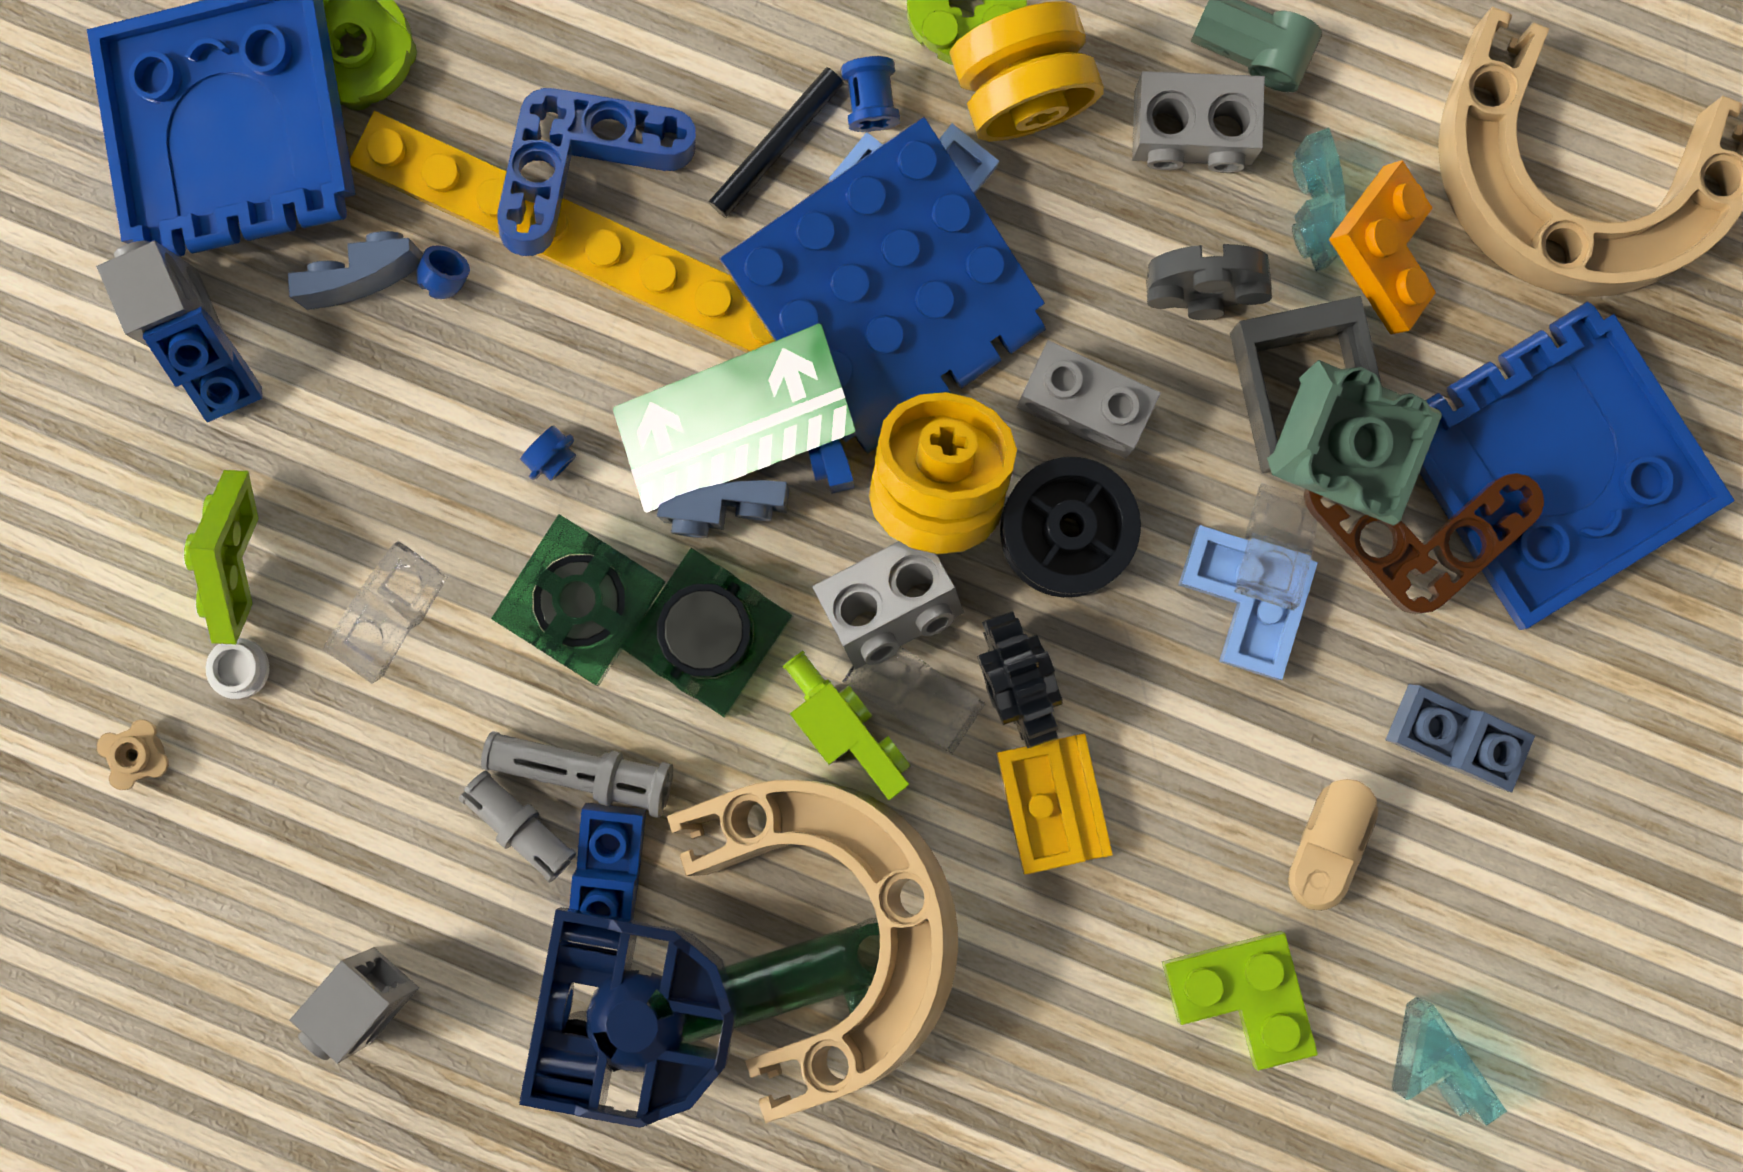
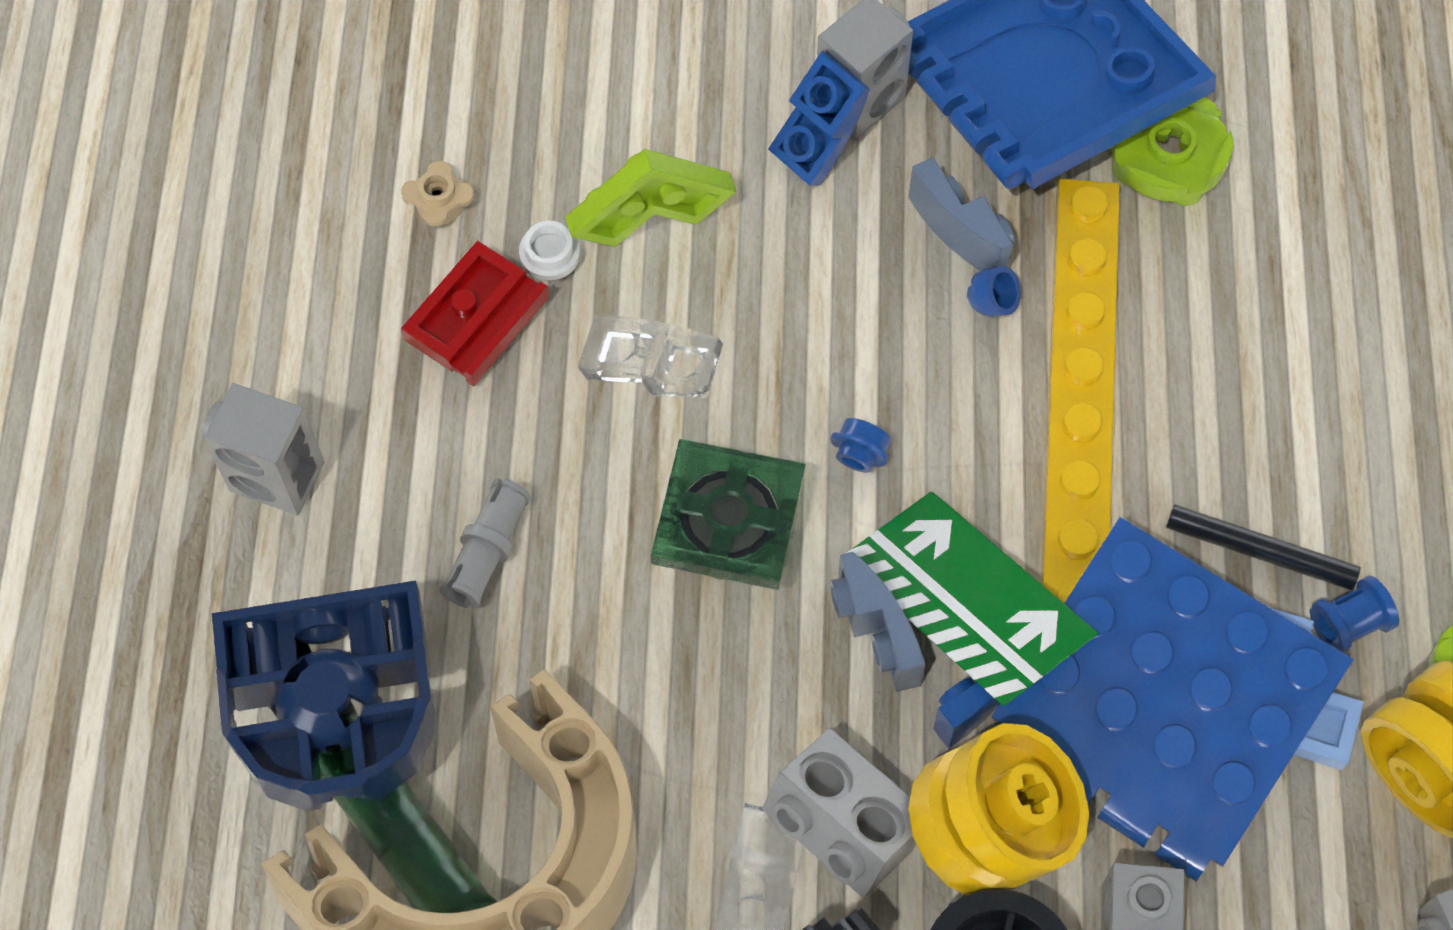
camera: 65 degrees right, 20 degrees down
(277, 760) = (475, 313): none -> red plate
(574, 136) = (1177, 360): blue beam -> none
(606, 777) = (563, 606): light grey pin -> none
(608, 860) = (481, 642): blue slope -> none
(707, 632) = (744, 651): piece -> none
(836, 725) = (692, 807): lime plate -> none

